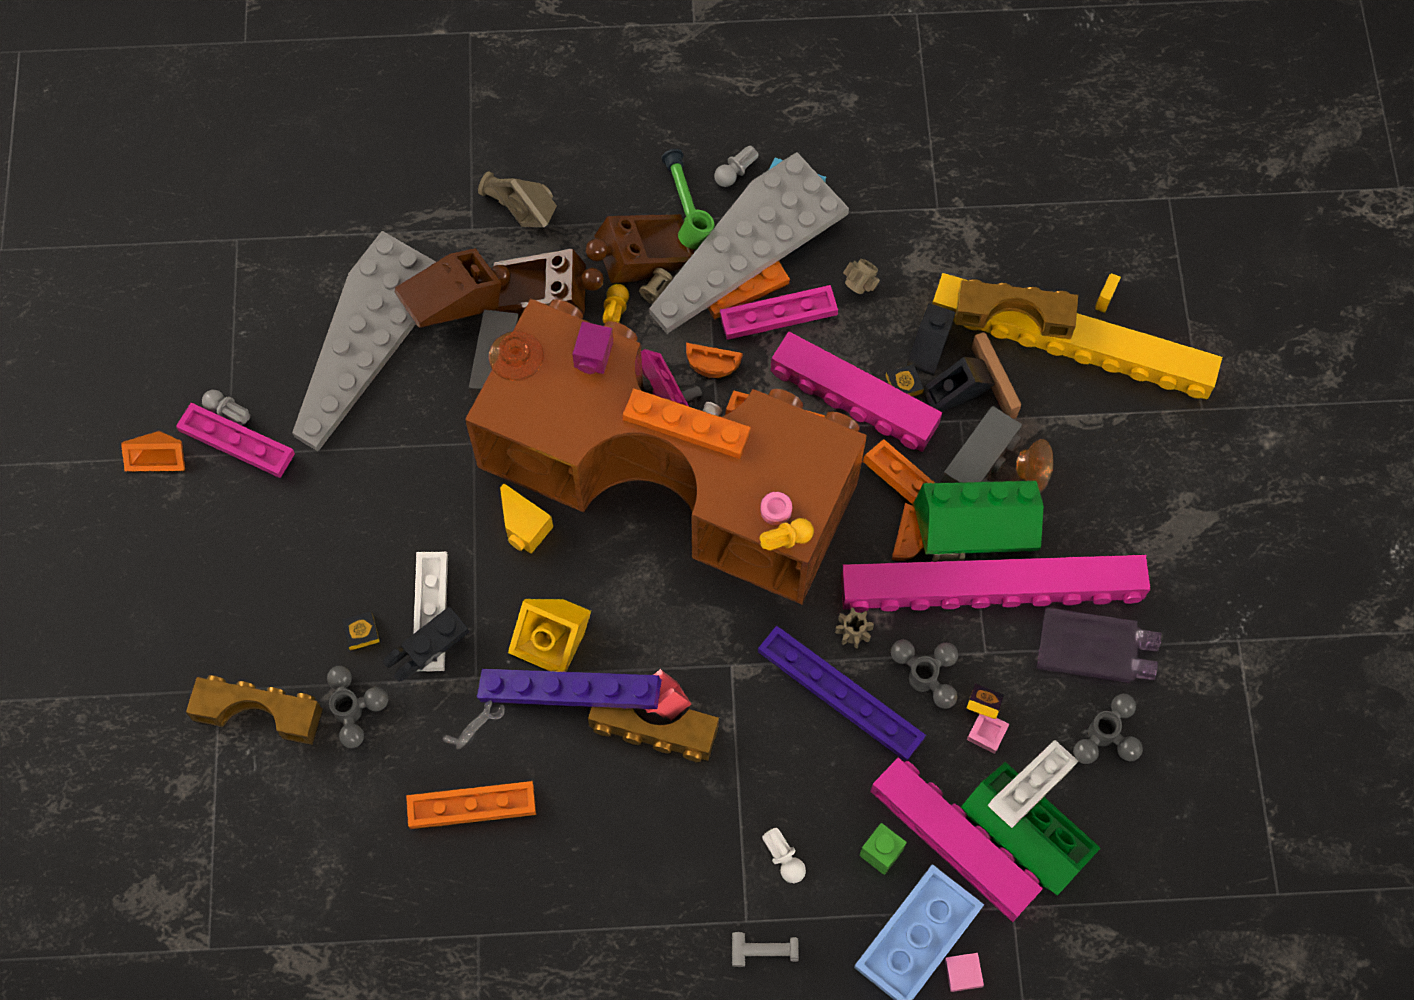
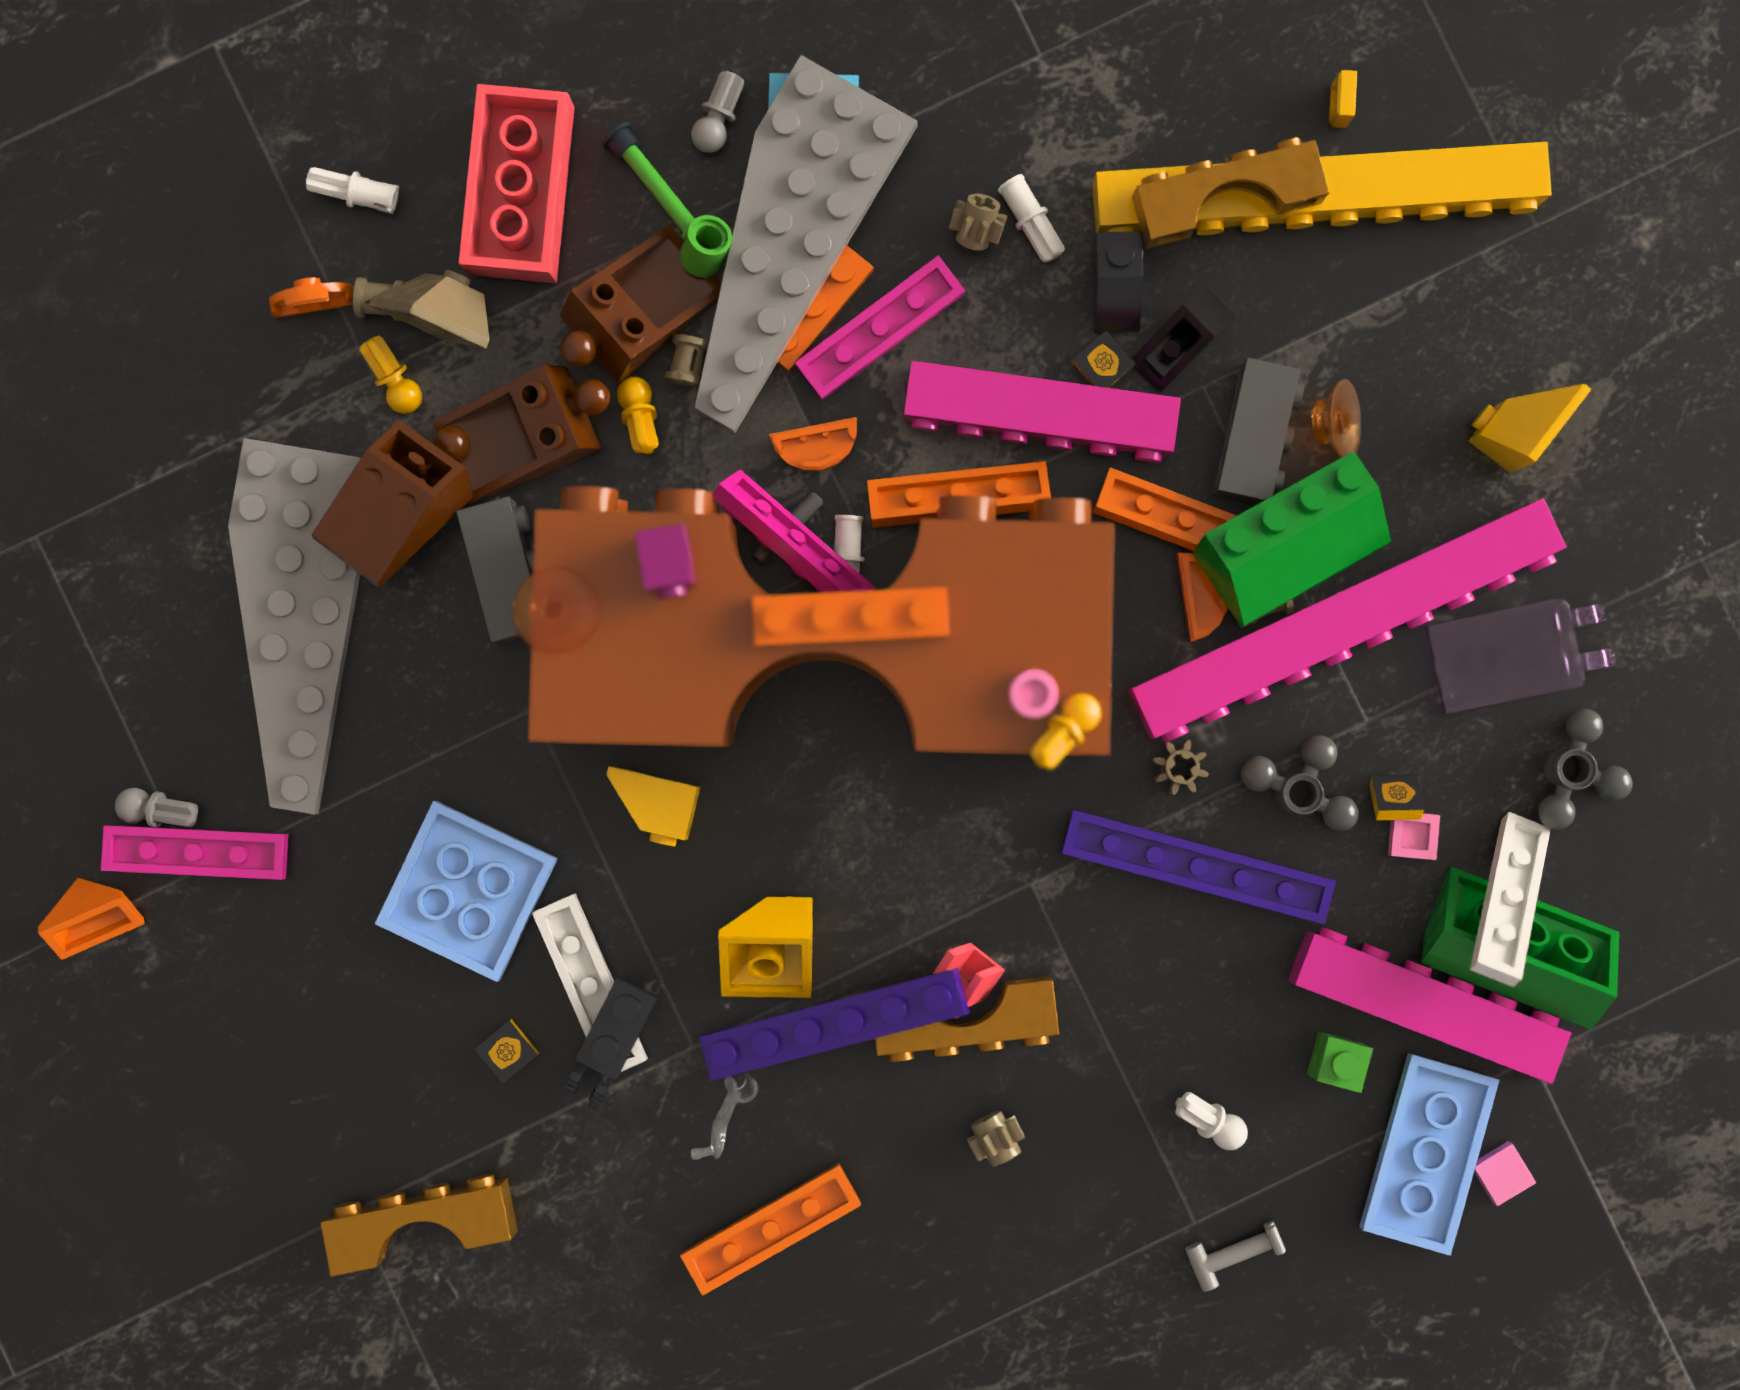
camera: 20 degrees left, 20 degrees up
(374, 699) = (573, 1142): dark grey piece -> none
(383, 526) = (466, 891): none -> light blue plate
(457, 173) = (310, 296): none -> orange plate
(483, 243) = (402, 393): none -> yellow axle
(510, 128) = (353, 189): none -> white axle
(603, 157) = (516, 183): none -> coral brick
(639, 805) = (995, 1138): none -> dark tan gear
(894, 288) = (1031, 218): none -> white axle
(1003, 388) = (1250, 318): medium nougat tile -> none
(1151, 510) = (1524, 426): none -> yellow slope

